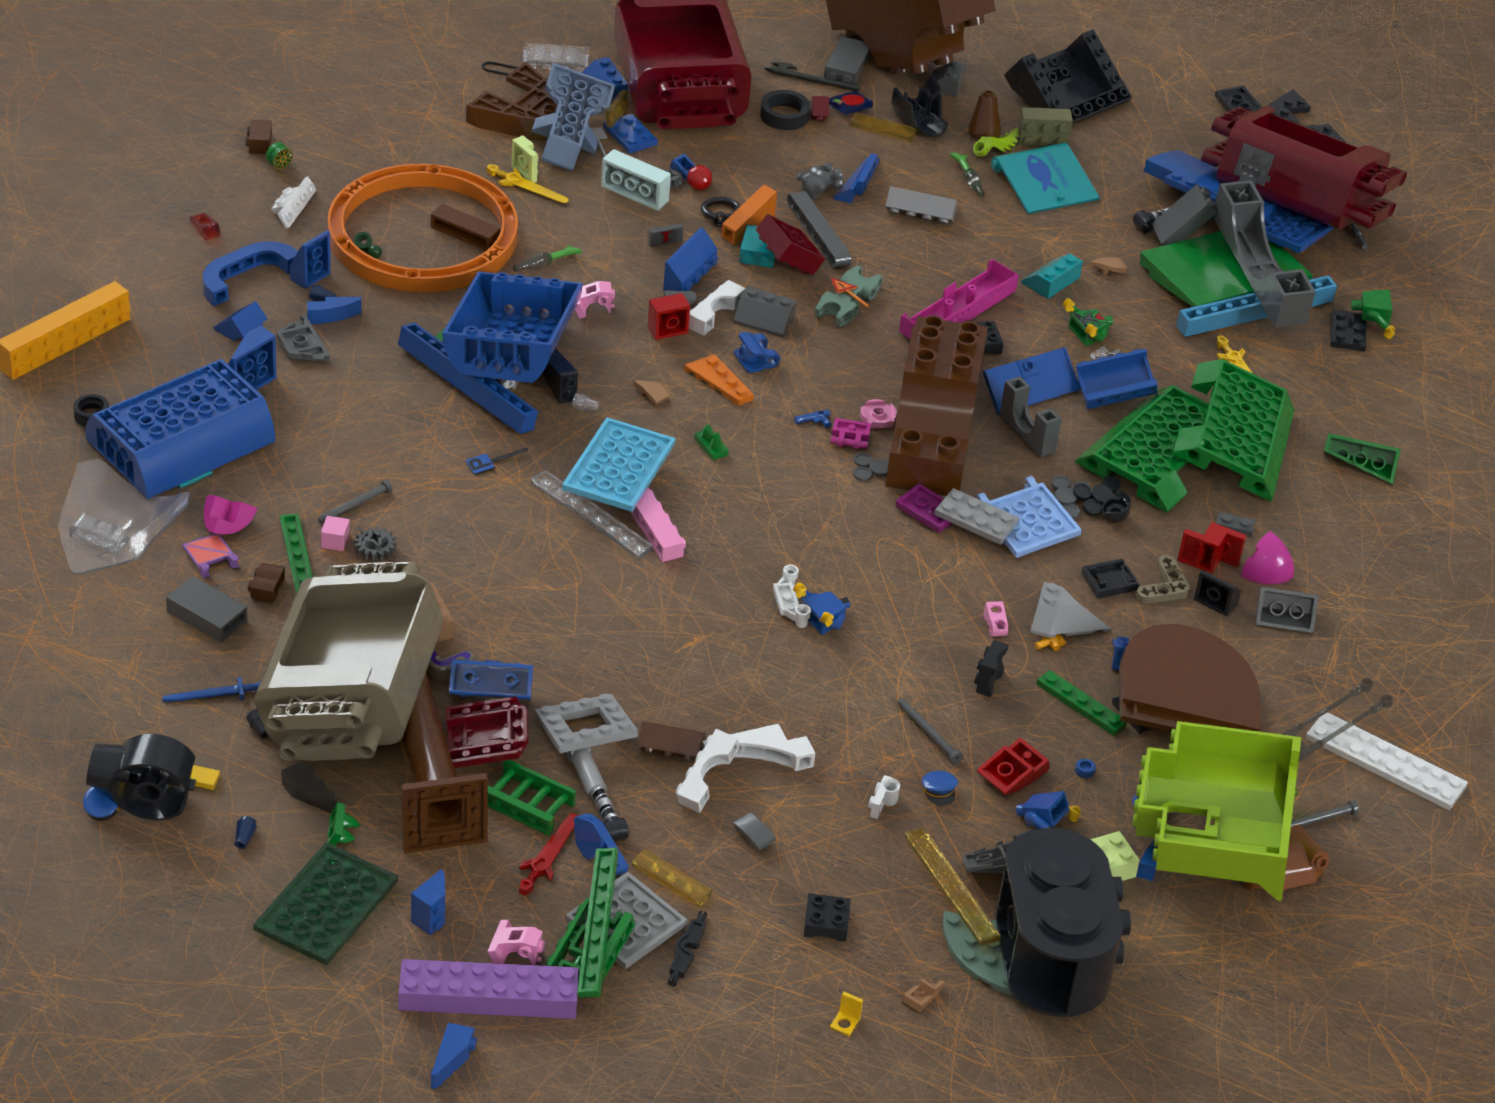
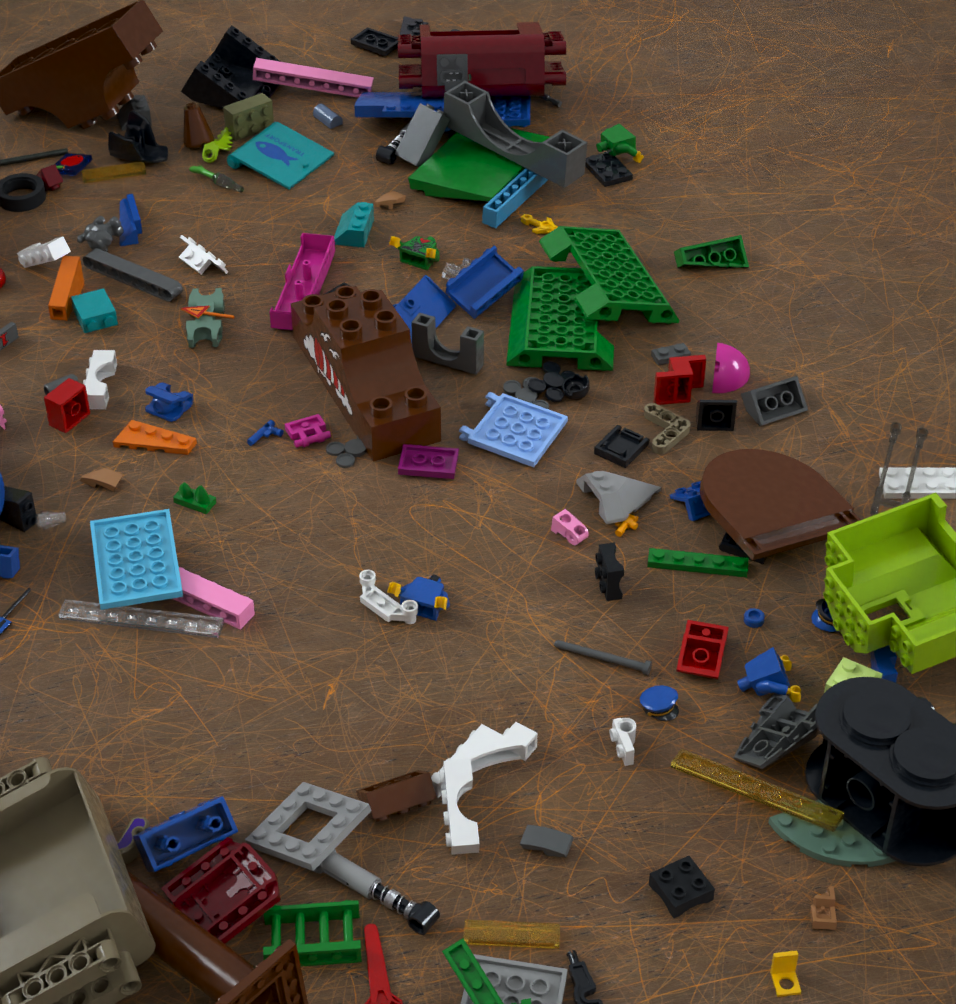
camera: 30 degrees left, 0 degrees up
(592, 835) = (414, 941): blue piece -> none
(690, 262) = (47, 351): blue slope -> none
(714, 200) = (33, 304): black piece -> none
(752, 174) = (44, 253): none -> white arch
(765, 311) = (146, 362): dark grey slope -> none
(790, 245) = (124, 296): dark red slope -> none
(847, 60) = (41, 132): dark grey brick -> none
(884, 419) = (315, 402): bright pink plate -> none
(888, 240) = (197, 257): none -> white bracket
(921, 204) = (201, 217): light grey slope -> none
(976, 516) = (477, 447): light grey plate -> none
(1124, 158) = (327, 116): none -> sand blue brick
(1137, 114) = (311, 78): none -> bright pink brick

